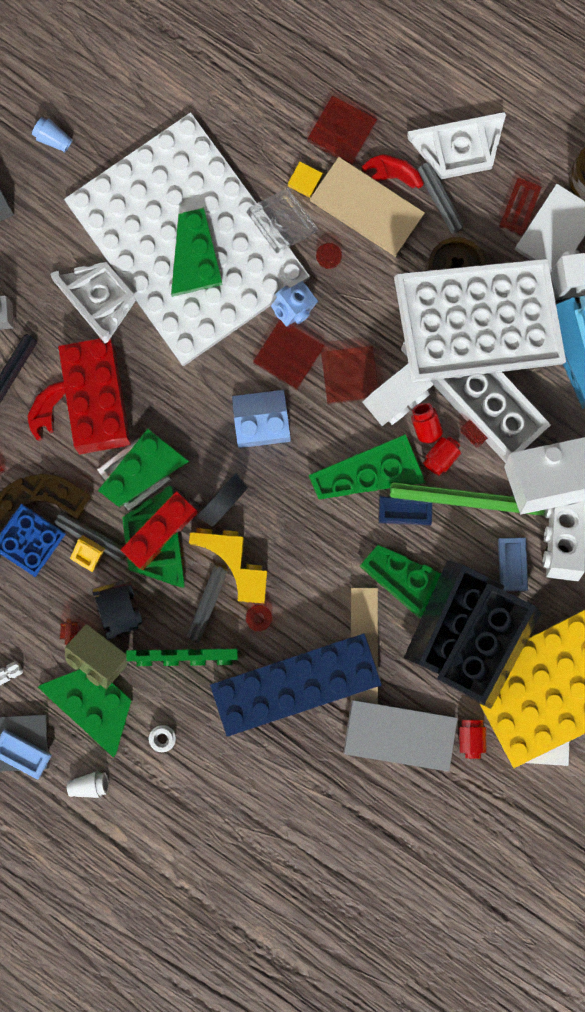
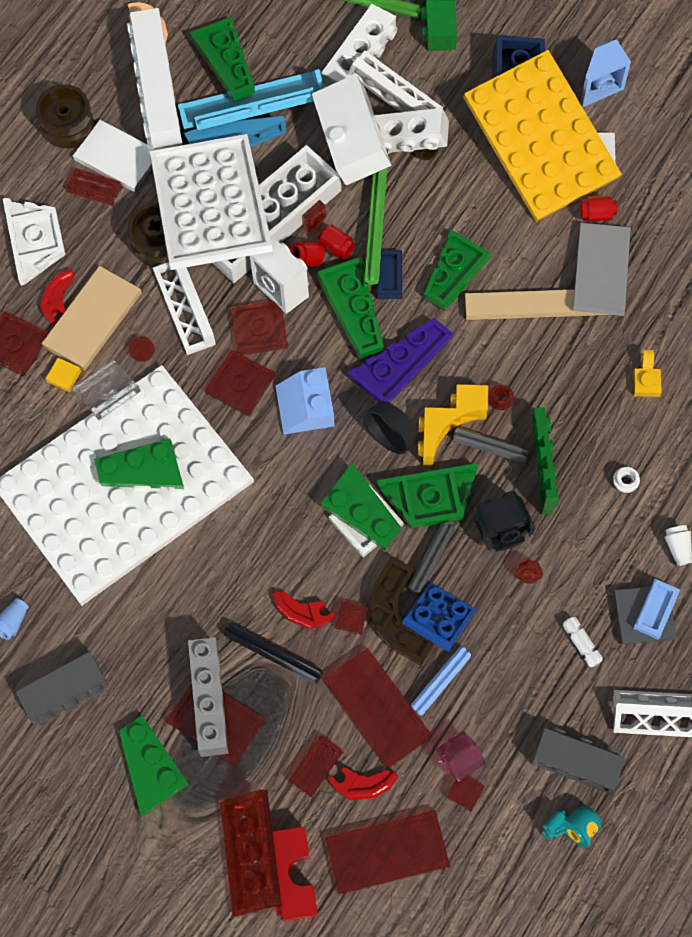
camera: 90 degrees left, 15 degrees down
(35, 456) = (351, 618): none -> clear red tile
(87, 553) = (449, 558): yellow tile -> none
(92, 707) = (599, 547): green wing -> none
(94, 396) = (288, 556): red brick -> none
(95, 657) = (553, 539): olive brick -> none
(97, 296) = (183, 560): white wing -> none
(158, 530) = (438, 491): red arch -> none
(271, 772) = (647, 380): none -> yellow plate
(294, 303) = (191, 374): light blue brick -> none
(296, 684) = (563, 355): dark blue brick -> none
(298, 513) = (402, 361): none -> dark purple wing
(357, 313) = (194, 308): none -> white fence
(440, 198) = (85, 253): dark grey axle -> none
(446, 615) = (493, 222): black brick -> none
(489, 645) = (514, 185): black slope -> none
(513, 564) = (434, 183): light blue tile -> none

